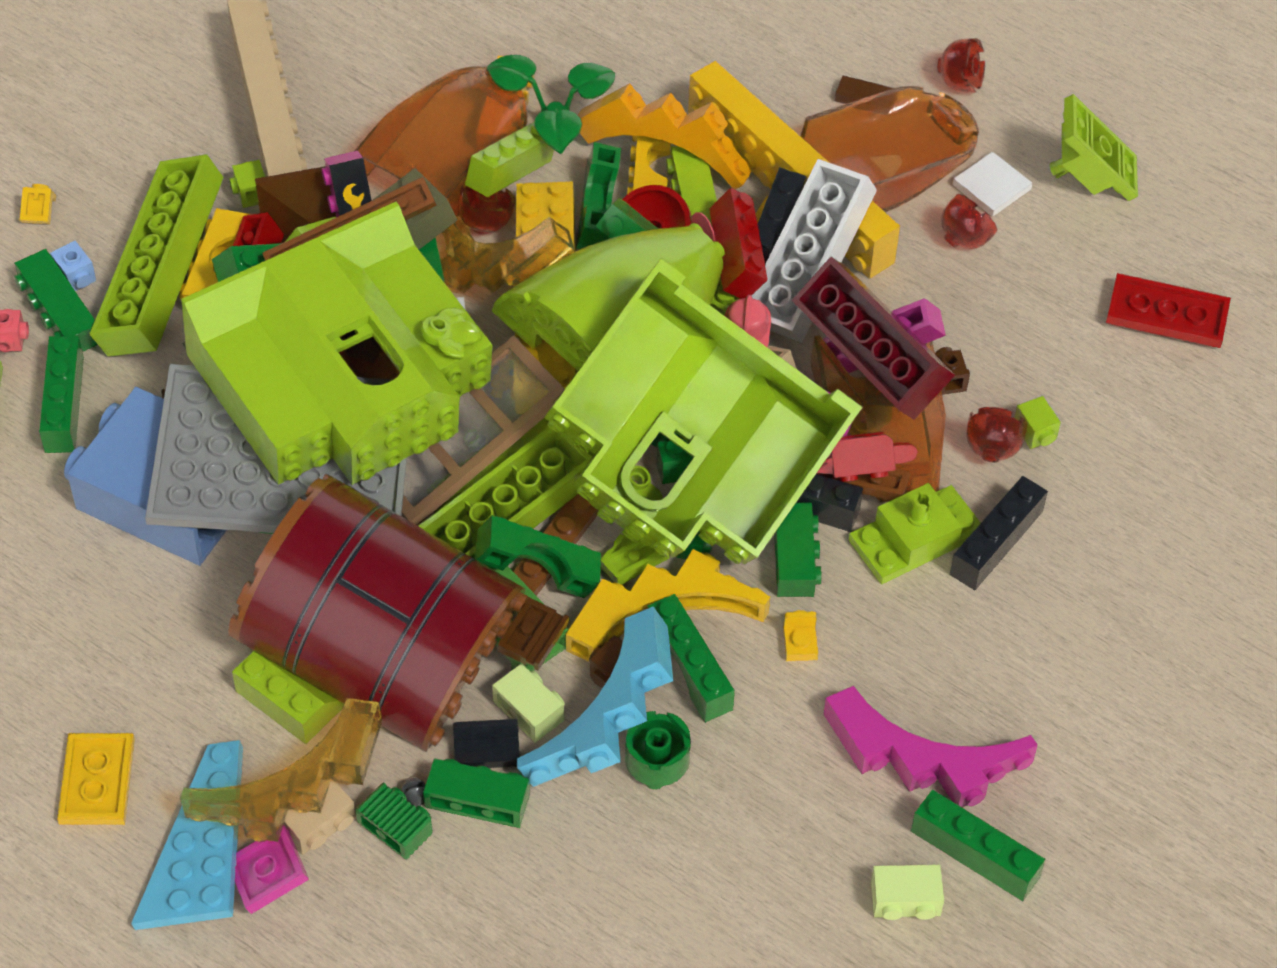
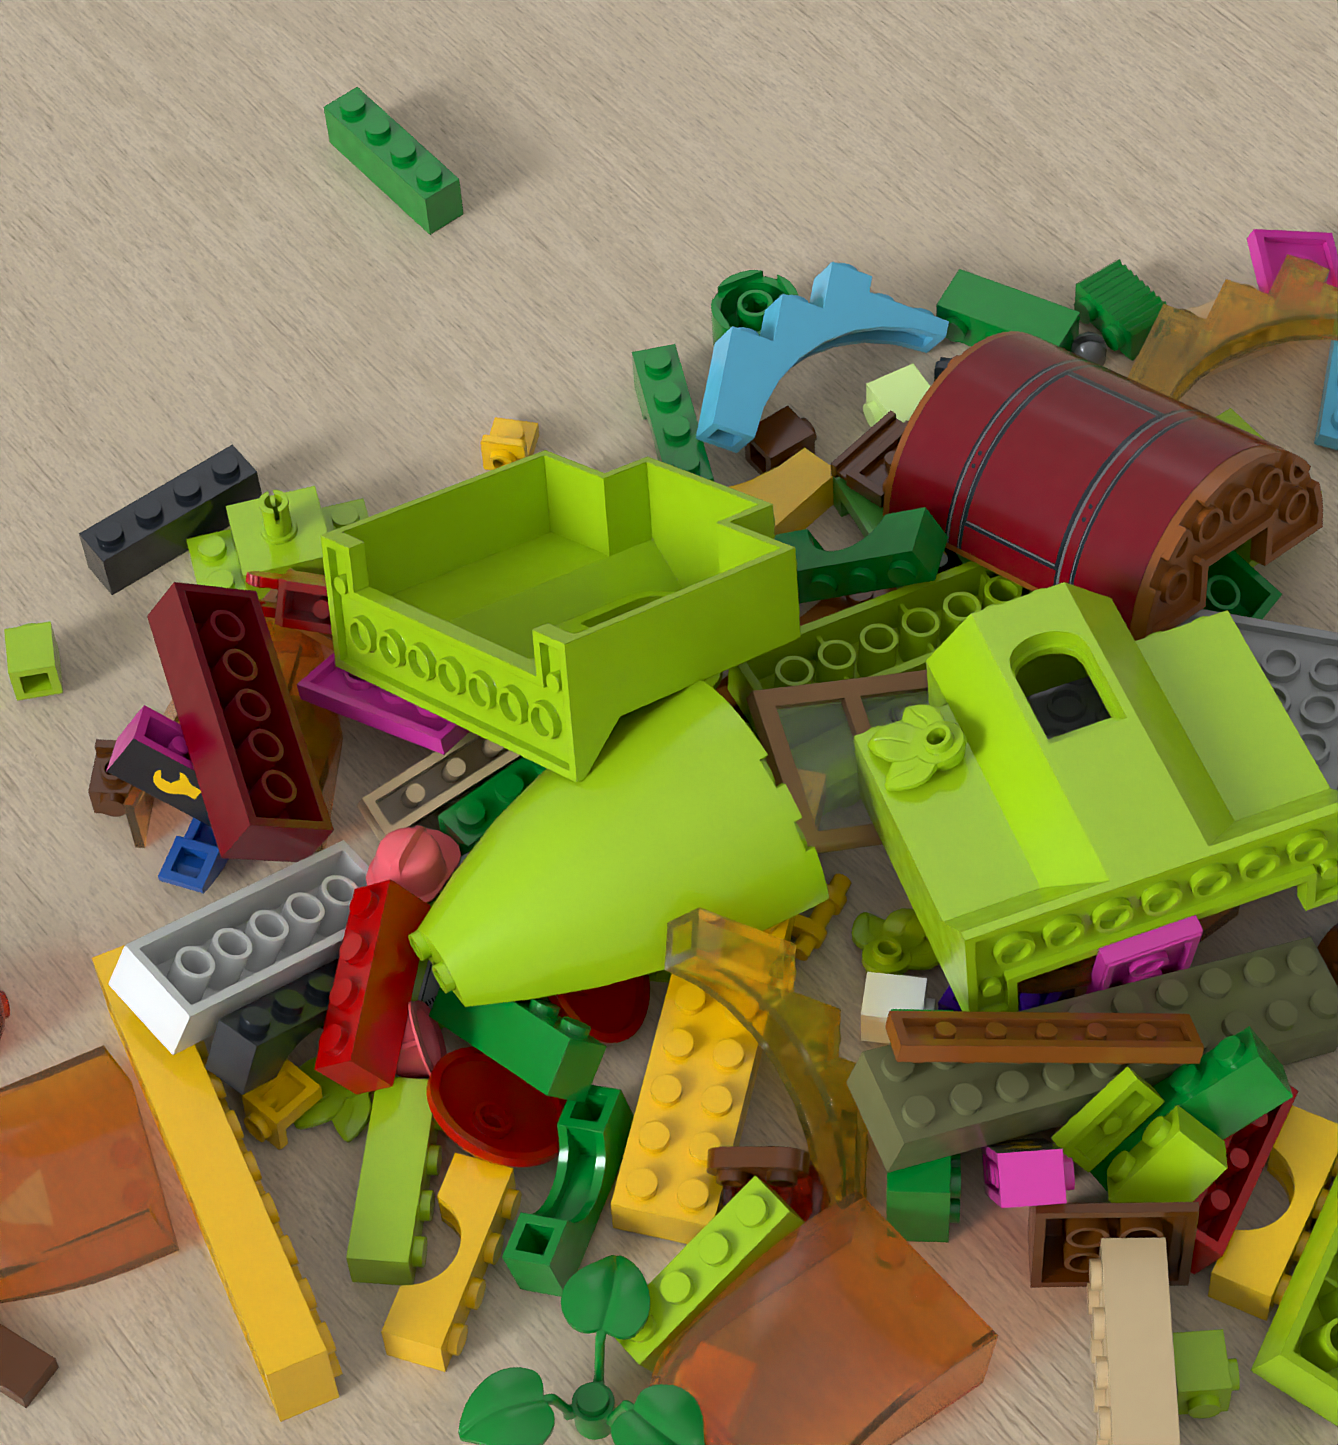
camera: 160 degrees left, 0 degrees up
(272, 228) = (1169, 1163): none -> lime brick
(495, 193) = (776, 1164): none -> reddish brown plate
(665, 119) = (421, 1277): light orange arch -> none
(907, 891) = (500, 132): yellowish green brick -> none
(919, 761) = (417, 263): dark pink arch -> none
(995, 433) = (105, 646): clear red cylinder -> none

